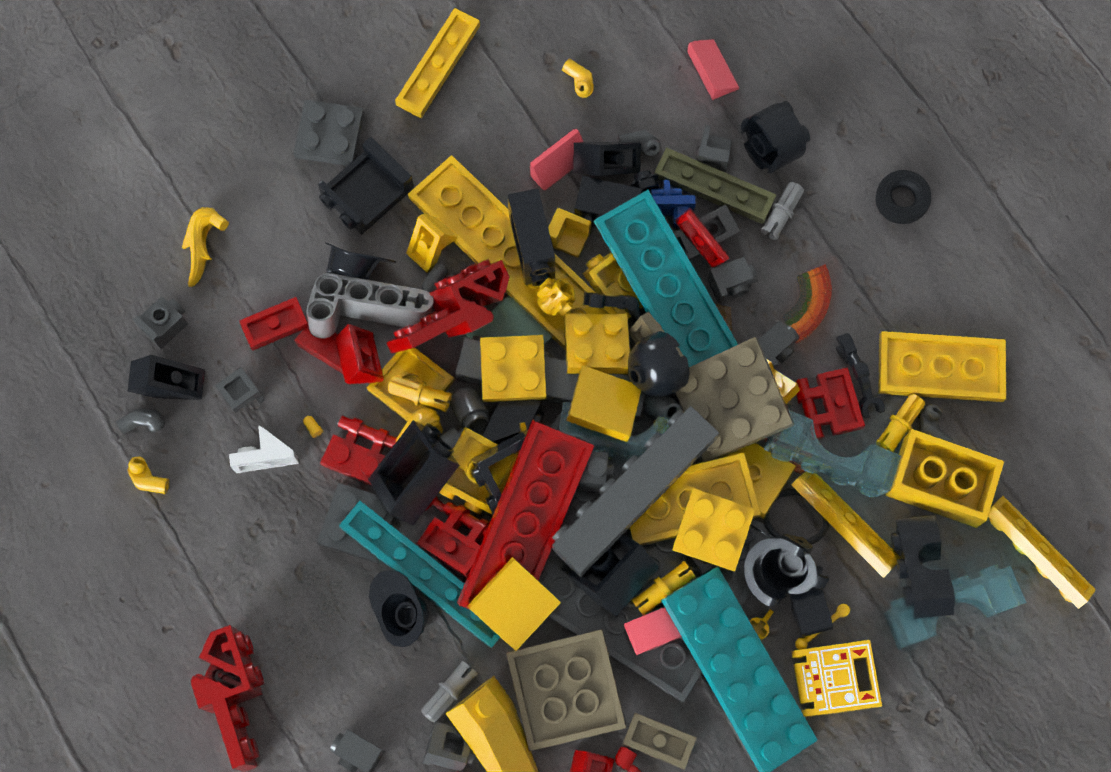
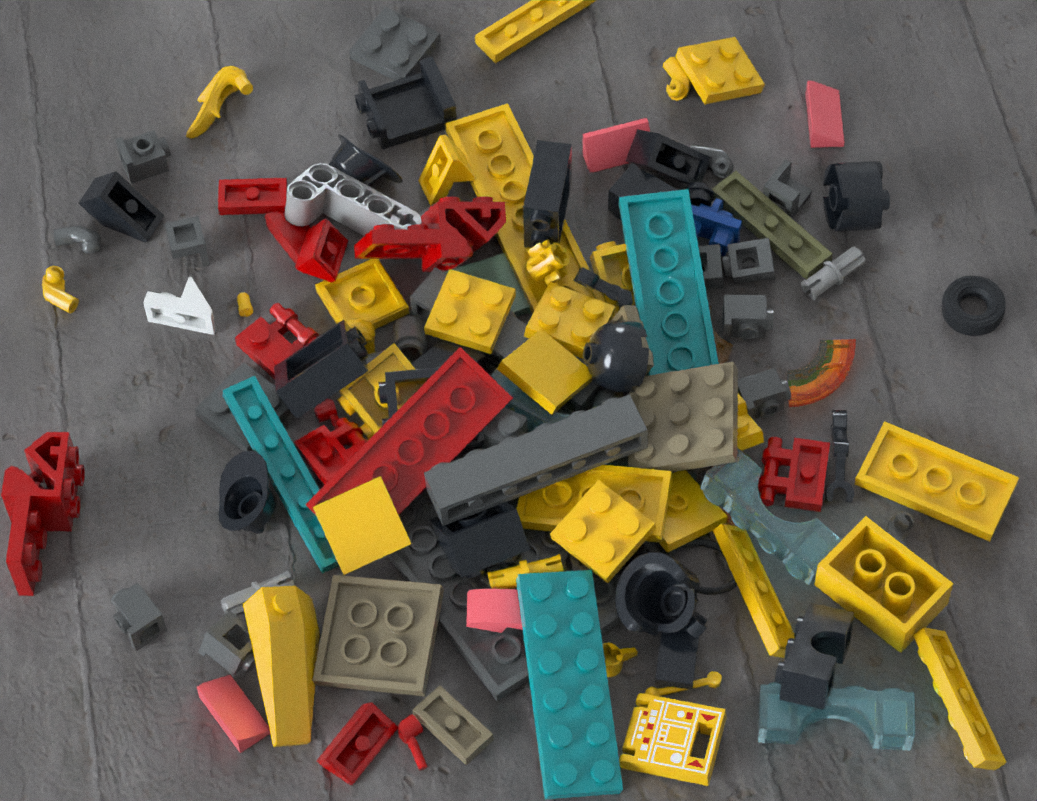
camera: 25 degrees right, 15 degrees down
(420, 393) = (365, 304): yellow axle -> none
(569, 232) = (593, 215): yellow panel -> none
(611, 57) = (719, 70): none -> yellow plate
(701, 238) = (727, 259): red slope -> none
(901, 423) = (875, 511): yellow axle -> none

